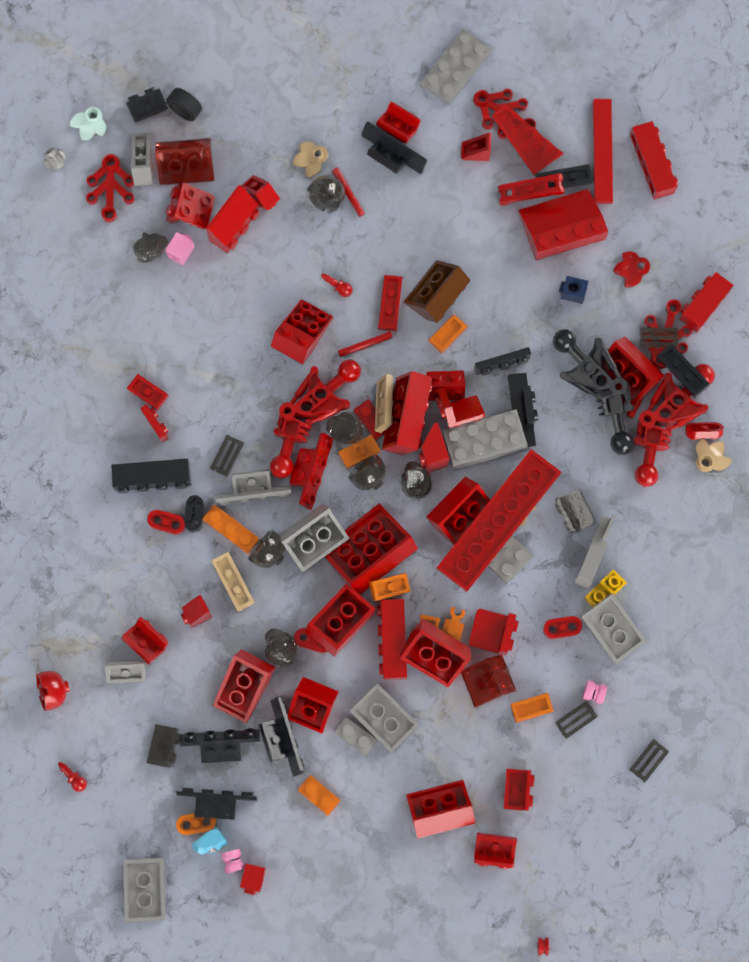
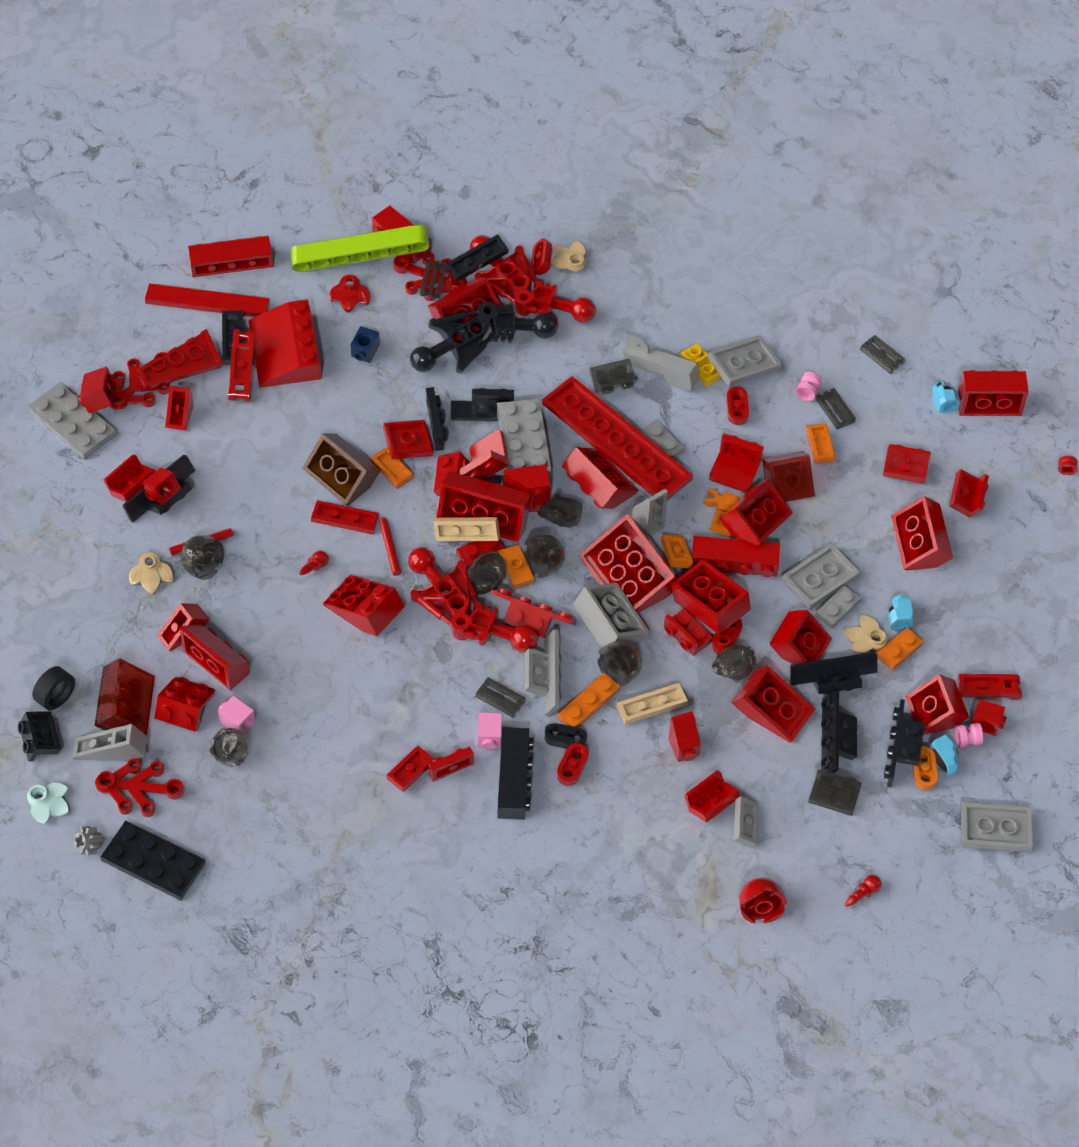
camera: 85 degrees left, 20 degrees down
(46, 211) = (153, 860): none -> black plate
(189, 449) = (489, 730): none -> bright pink brick
(259, 831) = (937, 705): none -> red slope
(287, 878) = (989, 686): none -> red plate
(310, 604) = (687, 632): none -> red bracket
(328, 760) = (863, 636): none -> tan plate
(354, 792) = (900, 613): none -> medium azure rock
(388, 146) = (161, 485): none -> red brick
(423, 557) = (651, 513): none -> light grey slope
(477, 342) = (408, 439): none -> red tile
(482, 78) = (97, 390): none -> red brick
(606, 823) = (945, 397): none -> medium azure rock
(610, 868) = (993, 393): none -> red brick
(677, 267) = (359, 248): none -> lime beam

